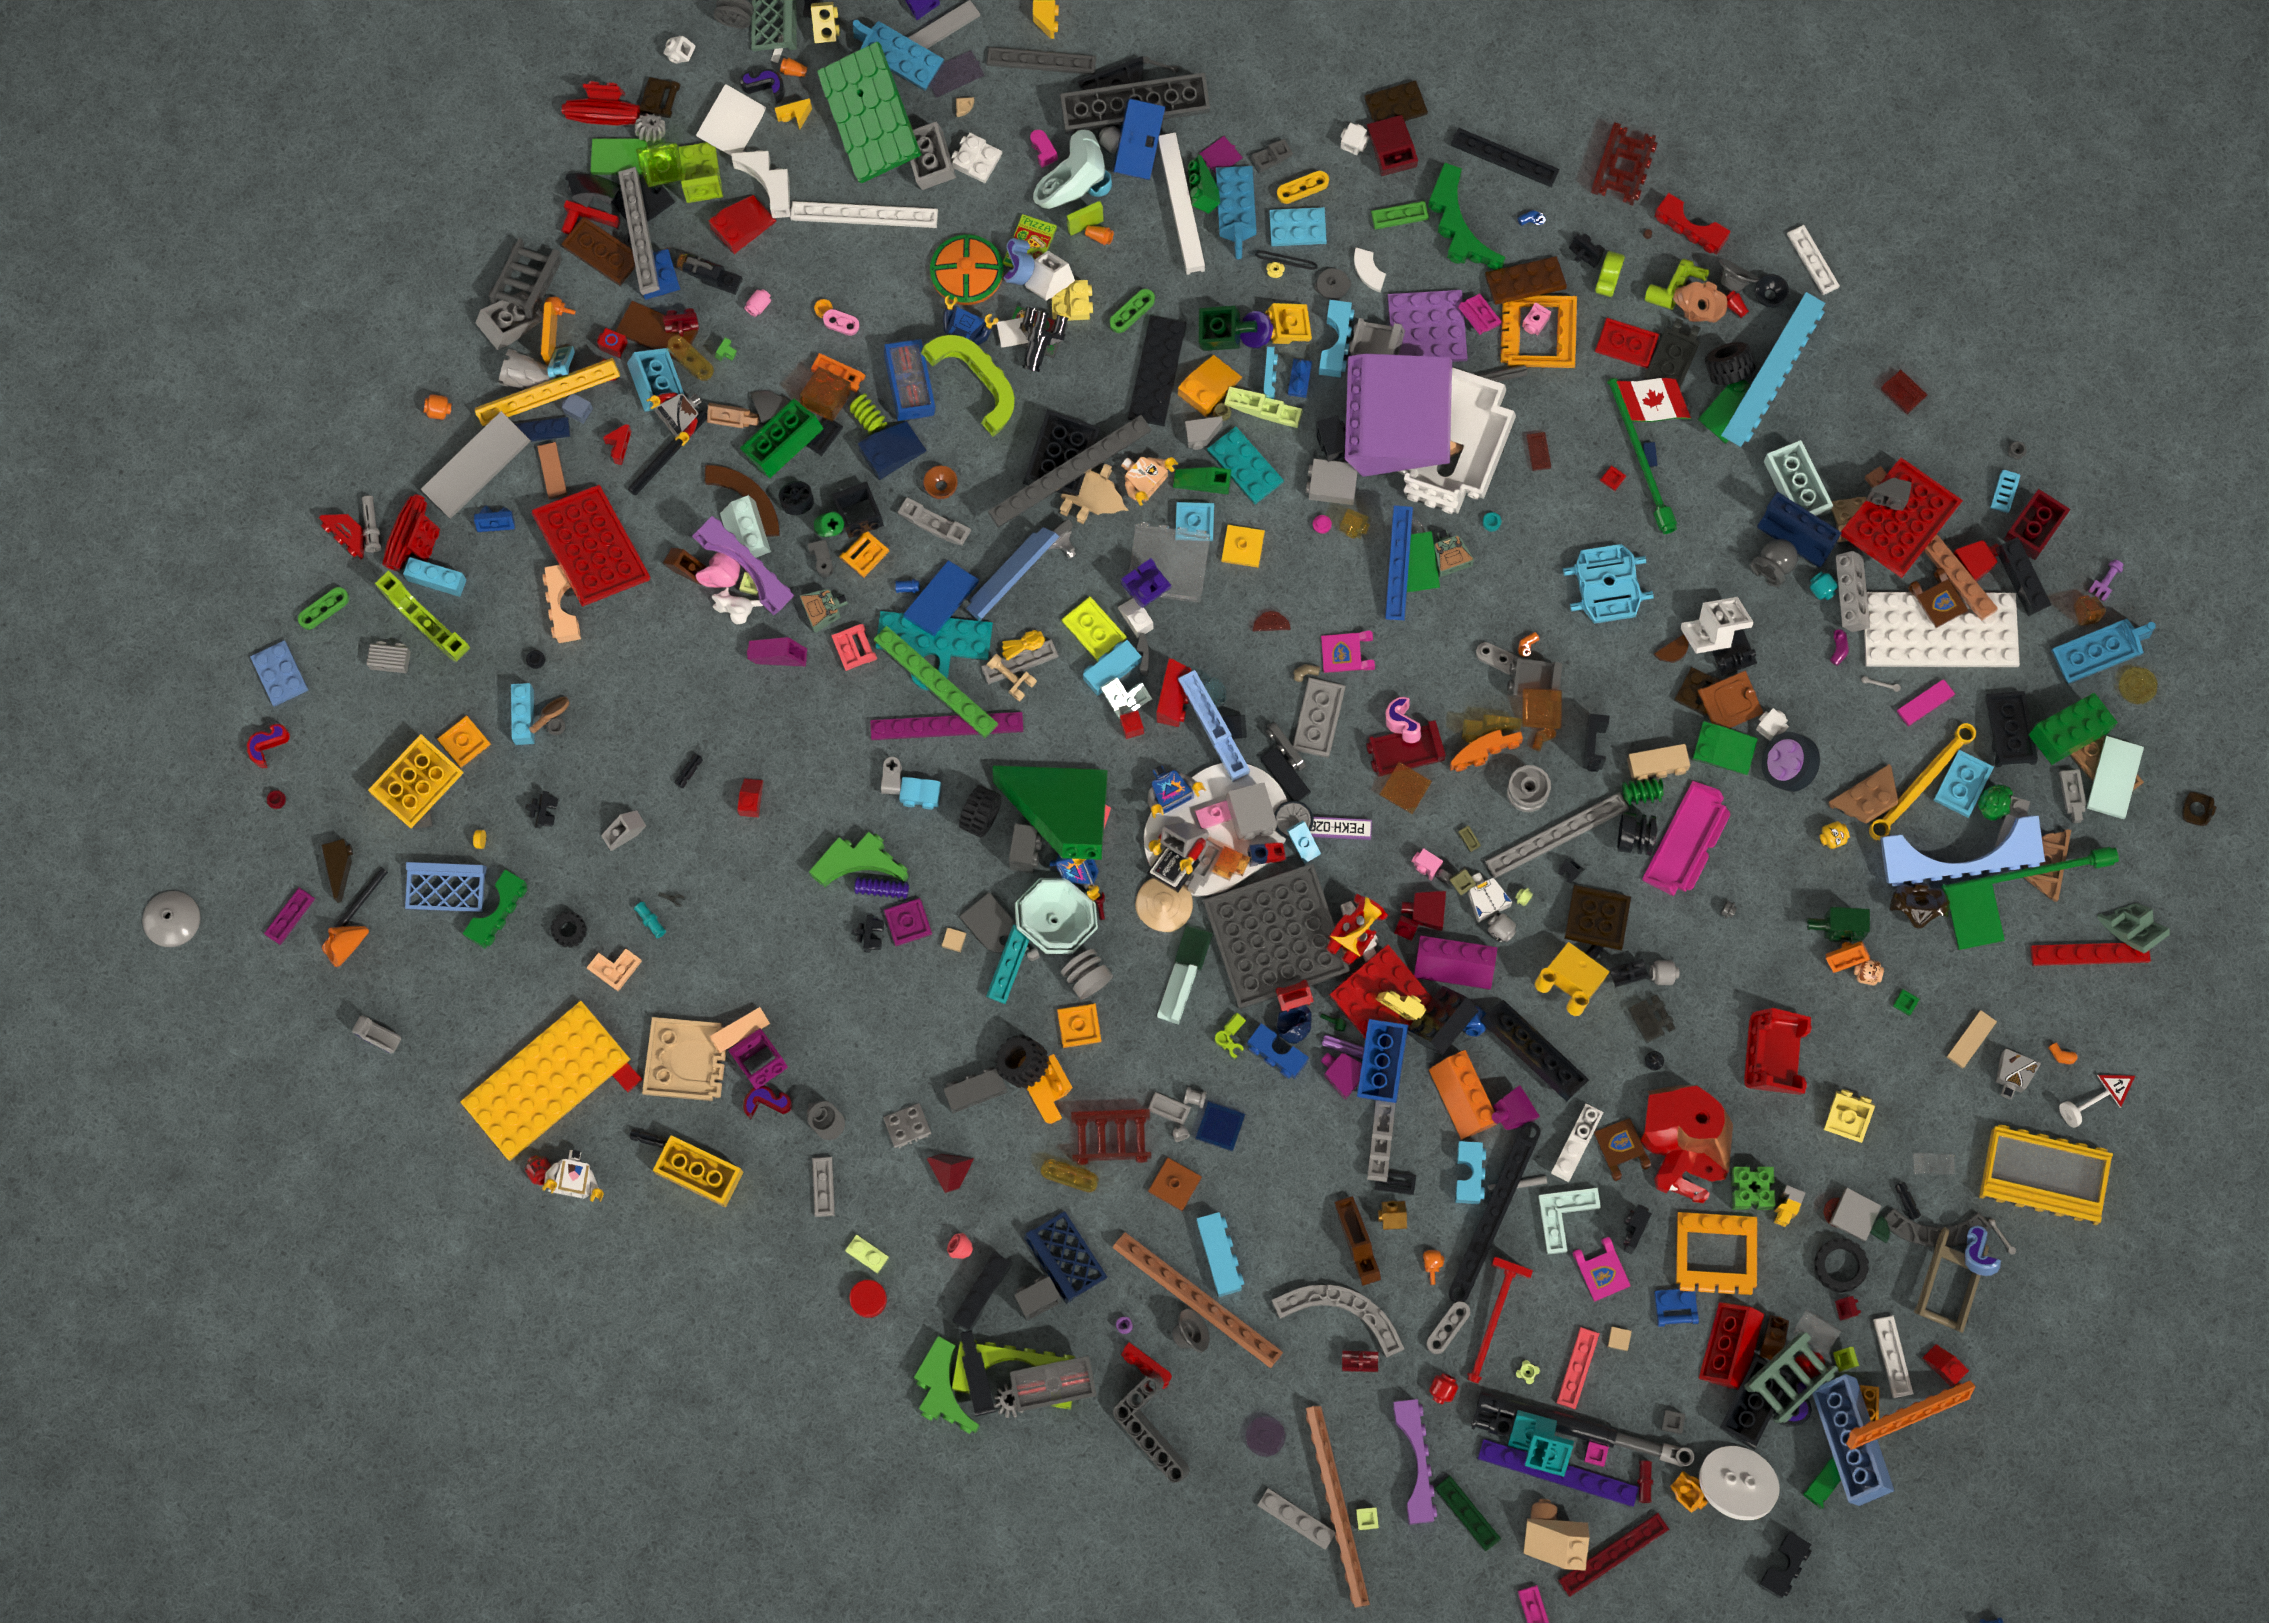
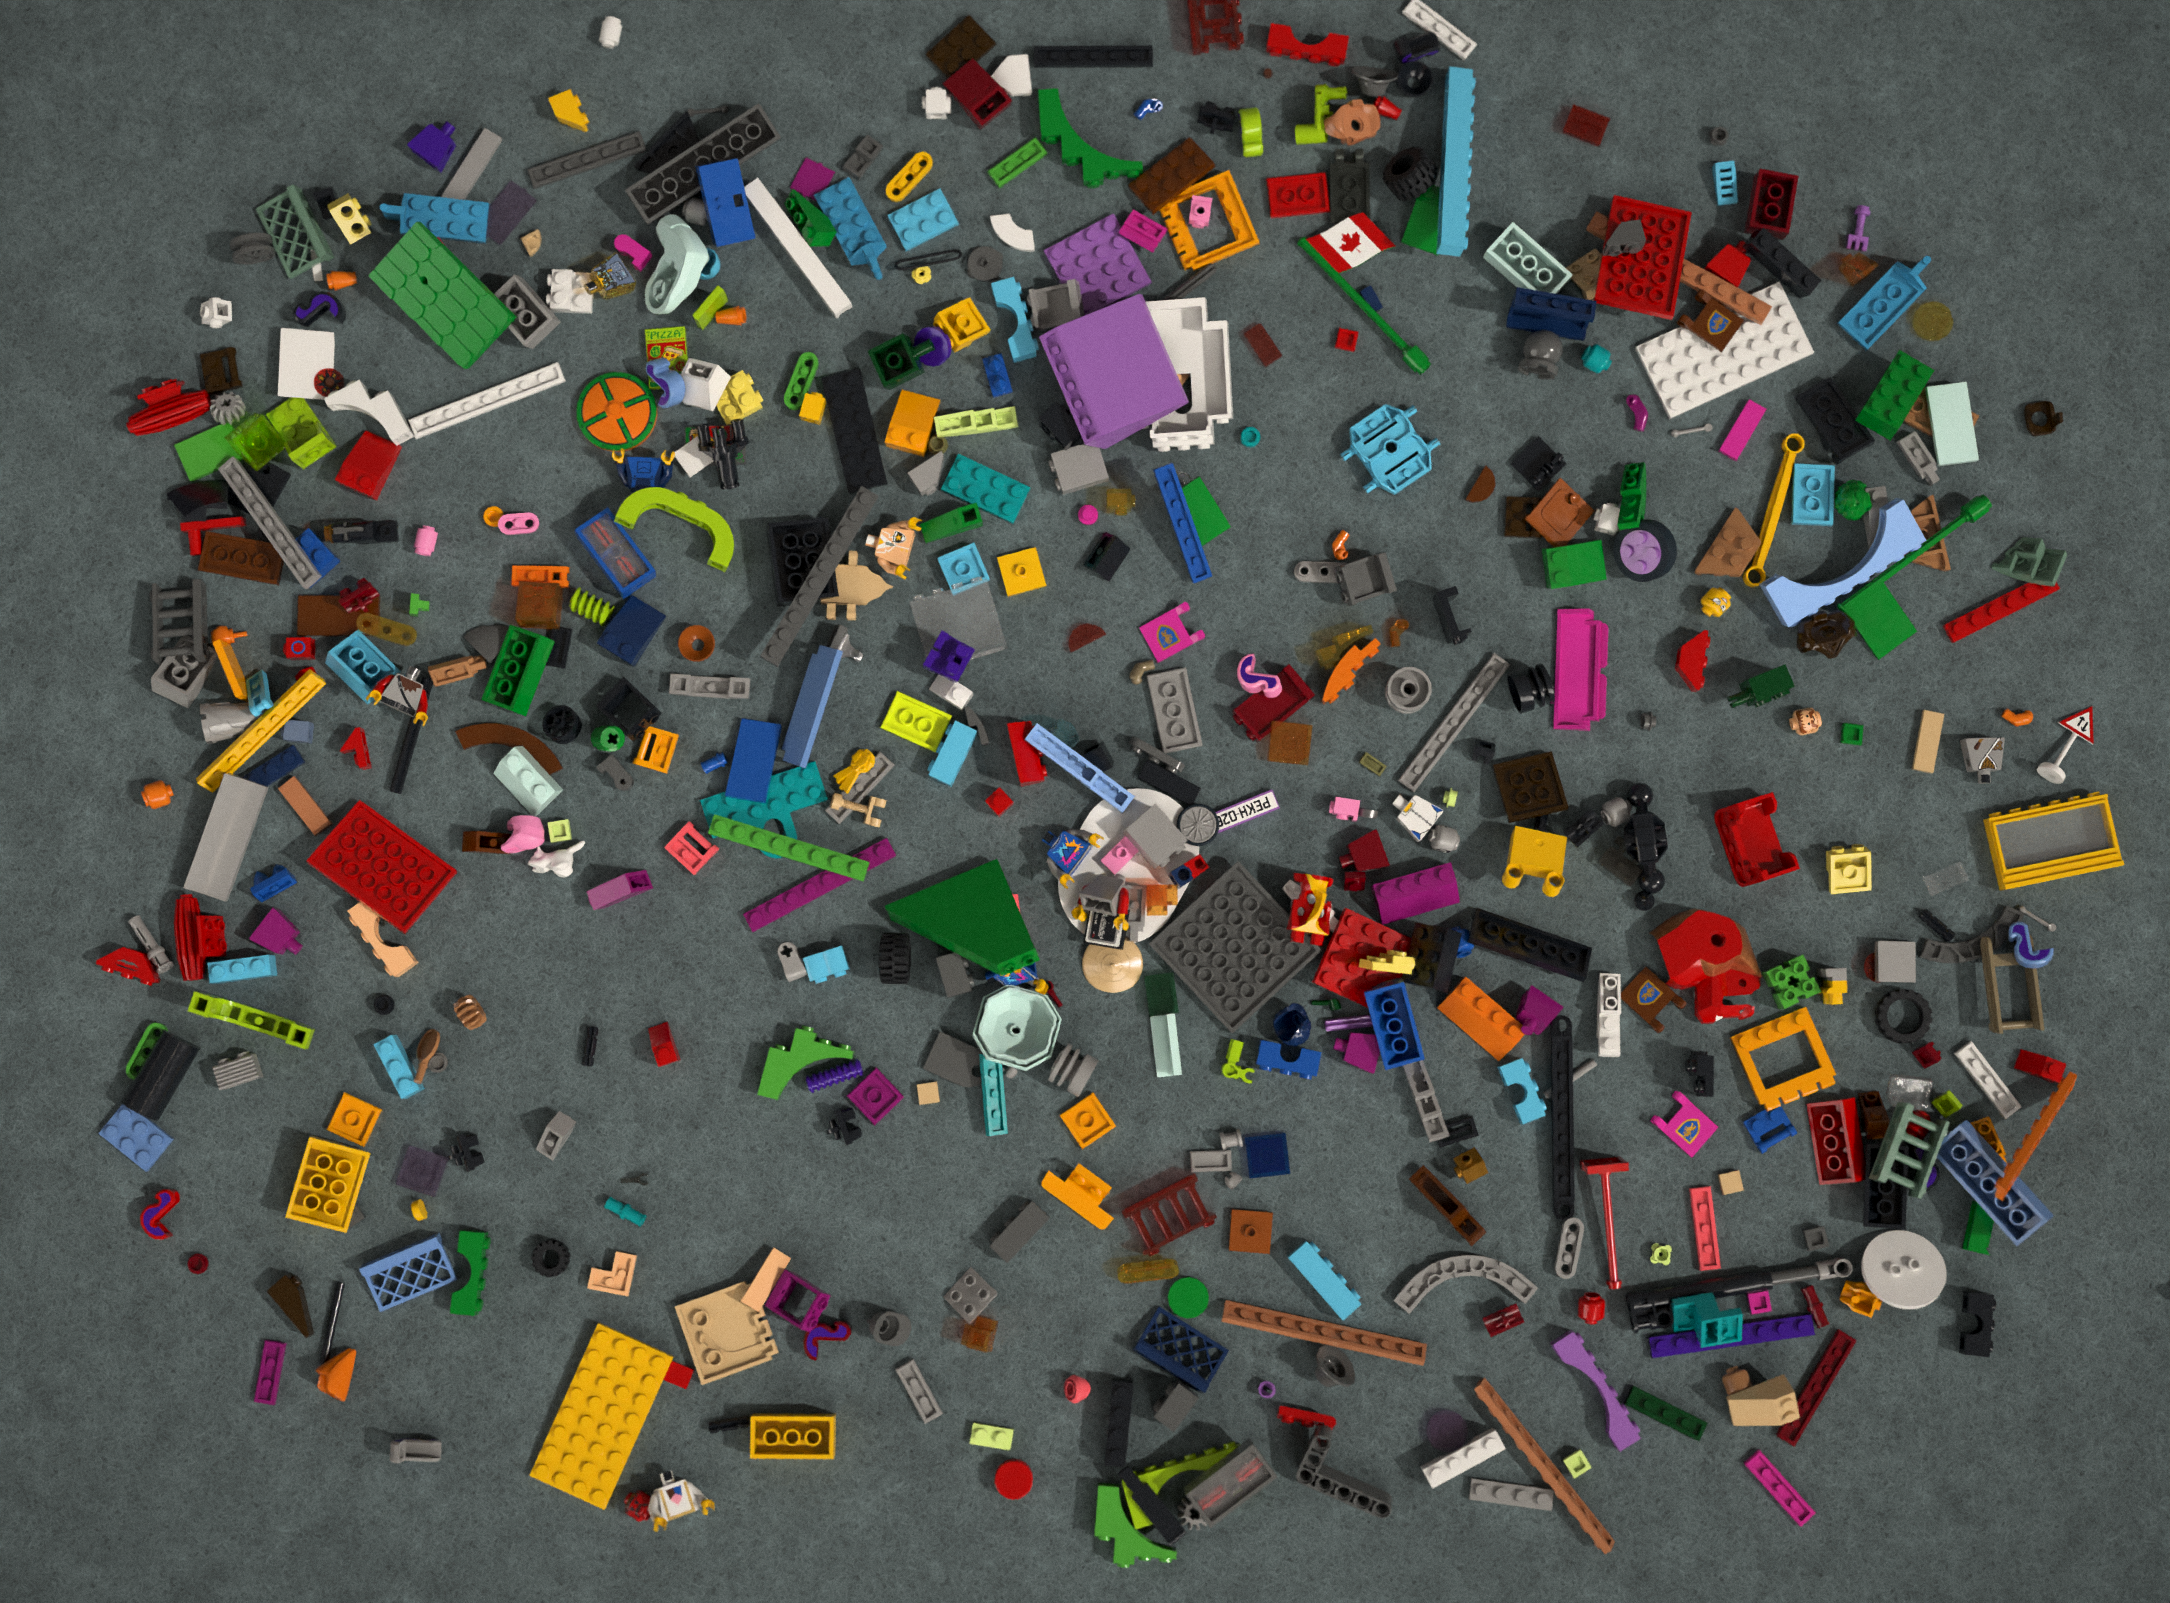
camera: 30 degrees left, 10 degrees up
(181, 924) = (167, 1427): light grey dish -> none
(325, 632) = (160, 1075): none -> black brick
(477, 561) = (277, 933): none -> magenta torso
(498, 809) = (422, 1171): none -> clear purple tile
(603, 695) = (469, 1012): none -> medium nougat gear
(742, 142) = (328, 381): none -> piece
(771, 591) = (583, 831): medium lavender arch -> none
(797, 109) = (368, 321): yellow slope -> none
(822, 608) = (641, 823): torso -> none
(899, 1162) = (981, 1335): none -> clear orange brick
(950, 1170) = (1031, 1318): dark red slope -> none
(1014, 161) = (610, 278): none -> torso
(1032, 1067) = (1038, 1188): black tyre -> none
(1093, 1215) = (1188, 1297): none -> green tile
(1123, 701) = (980, 782): light aqua plate -> none
(1131, 336) = (812, 408): none -> yellow brick
(1268, 1463) = (1452, 1464): none -> white arch
(1270, 375) = (967, 386): medium azure plate -> none
(1294, 995) = (1282, 1000): red piece -> none
(1303, 841) = (1218, 842): plate -> none
(1322, 565) = (1107, 556): none -> black panel
(1430, 144) = (1014, 76): none -> white slope
(1432, 1262) = (1526, 1192): orange piece -> none
(1451, 554) = (1226, 488): torso -> none
(1462, 881) = (1387, 812): olive tile -> none
(1542, 708) = (1385, 604): clear orange tile -> none
(1551, 1211) = (1613, 1090): light aqua plate -> none
(1643, 791) = (1516, 642): green piece -> none
(1658, 762) = (1519, 607): tan brick -> none
(1679, 1005) = (1645, 838): none -> black piece
(1716, 625) = (1514, 445): white bracket -> none
(1784, 265) = (1416, 47): none -> black animal
(1791, 874) = (1692, 660): none -> red slope
(1802, 713) = (1633, 496): none -> green slope
(1847, 956) = (1780, 716): orange tile -> none
(1852, 591) = (1627, 351): light grey brick -> none
(1881, 1230) = (1925, 965): clear green tile -> none

